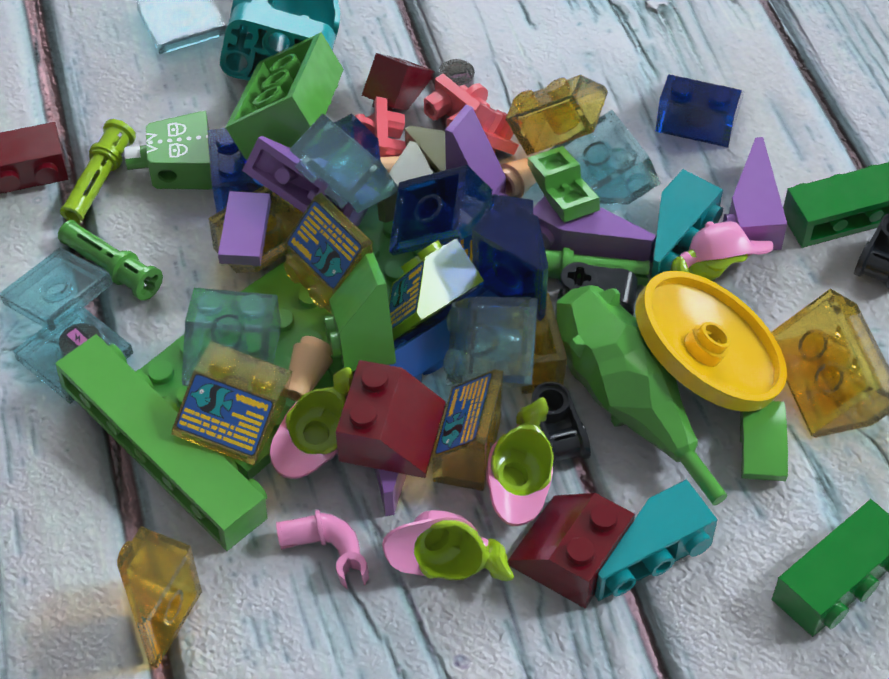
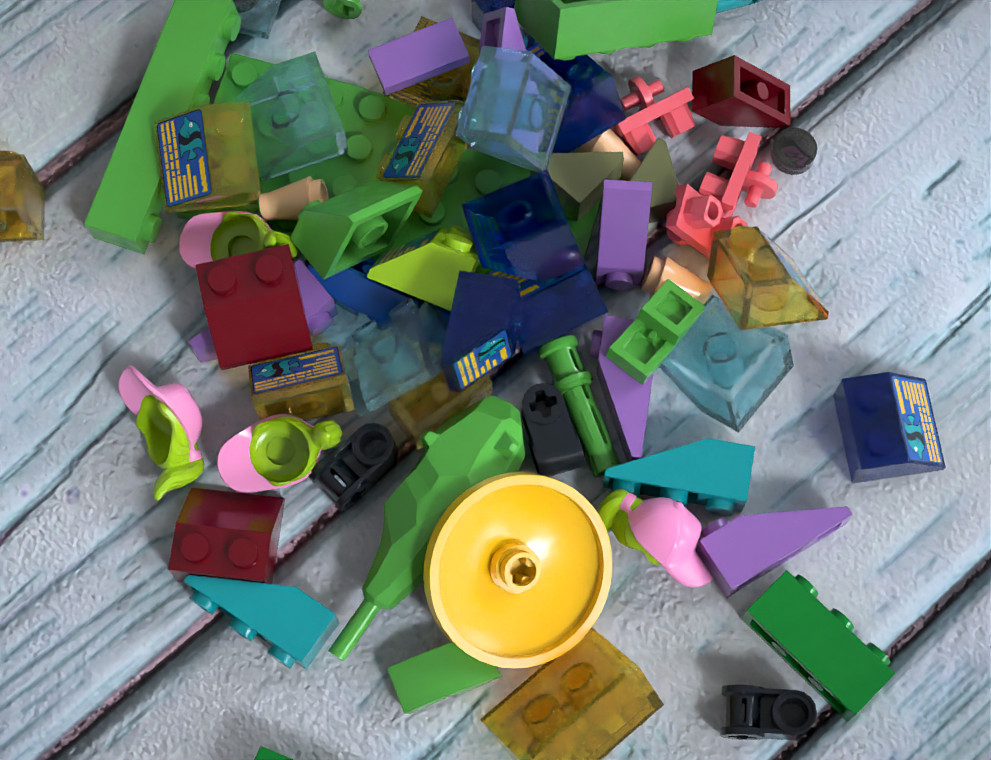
camera: 65 degrees right, 20 degrees up
(325, 529) = (143, 309): bright pink piece -> none

